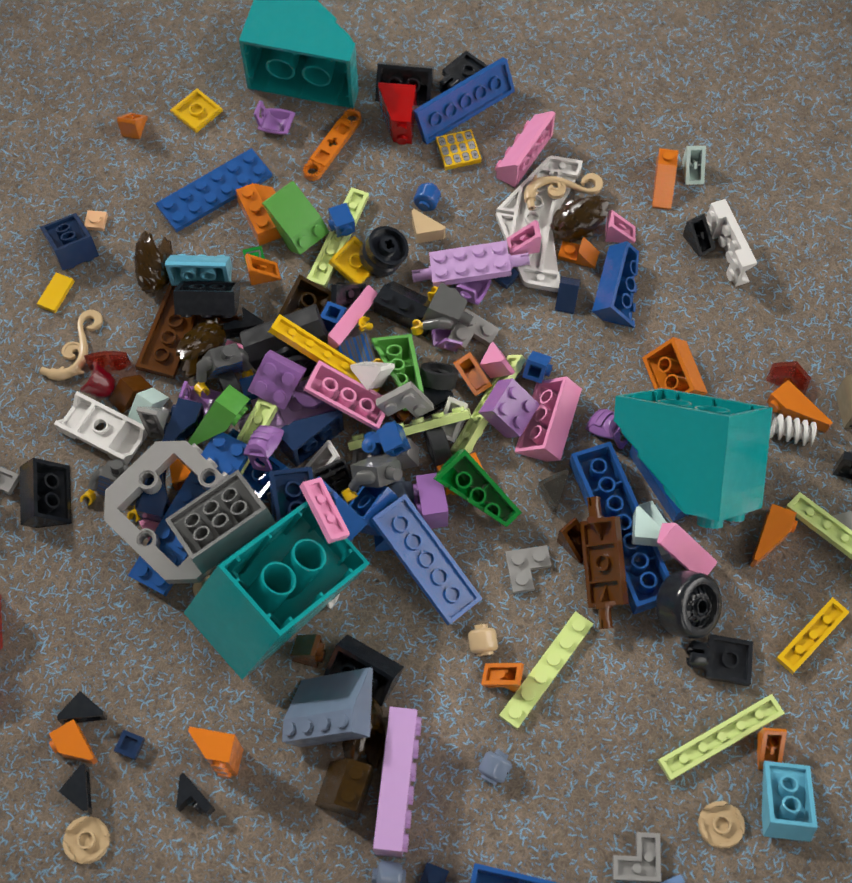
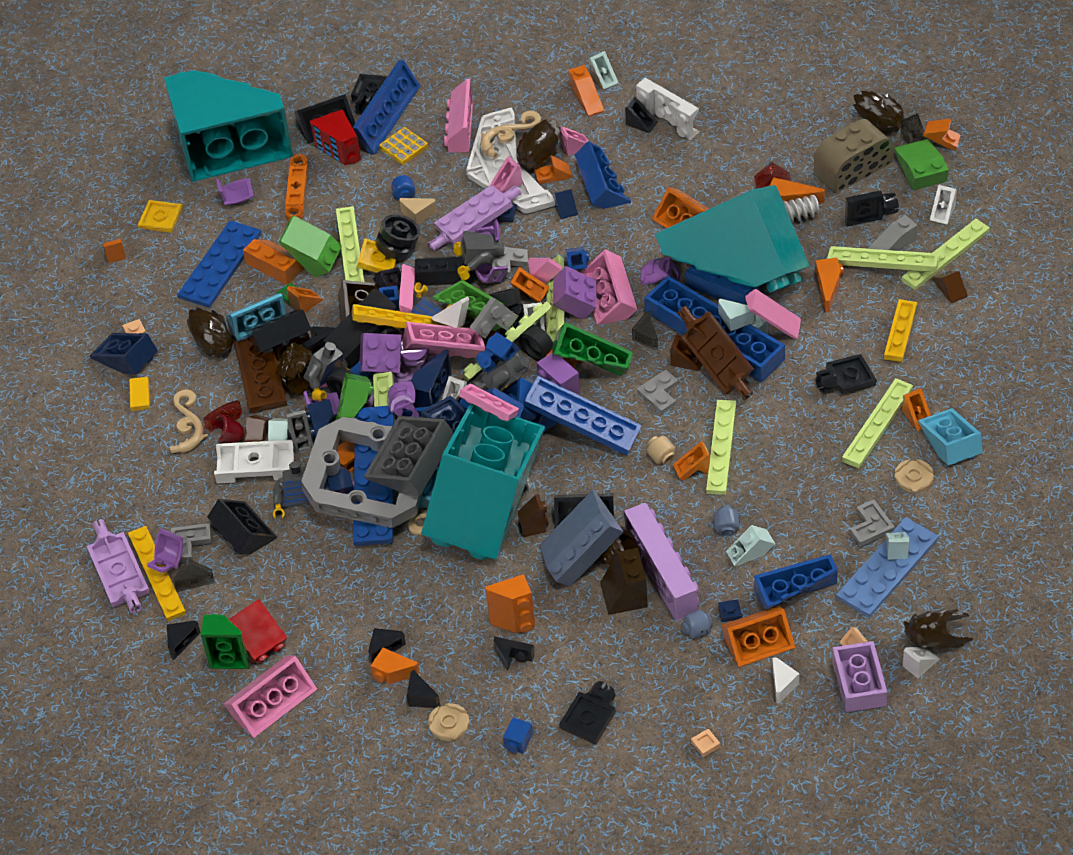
camera: 25 degrees left, 15 degrees down
(129, 745) = (437, 647): dark blue plate -> none
(341, 220) = (347, 231): blue brick -> none
(500, 813) = (750, 545): none -> light aqua slope
(689, 604) = (798, 347): black wheel -> none

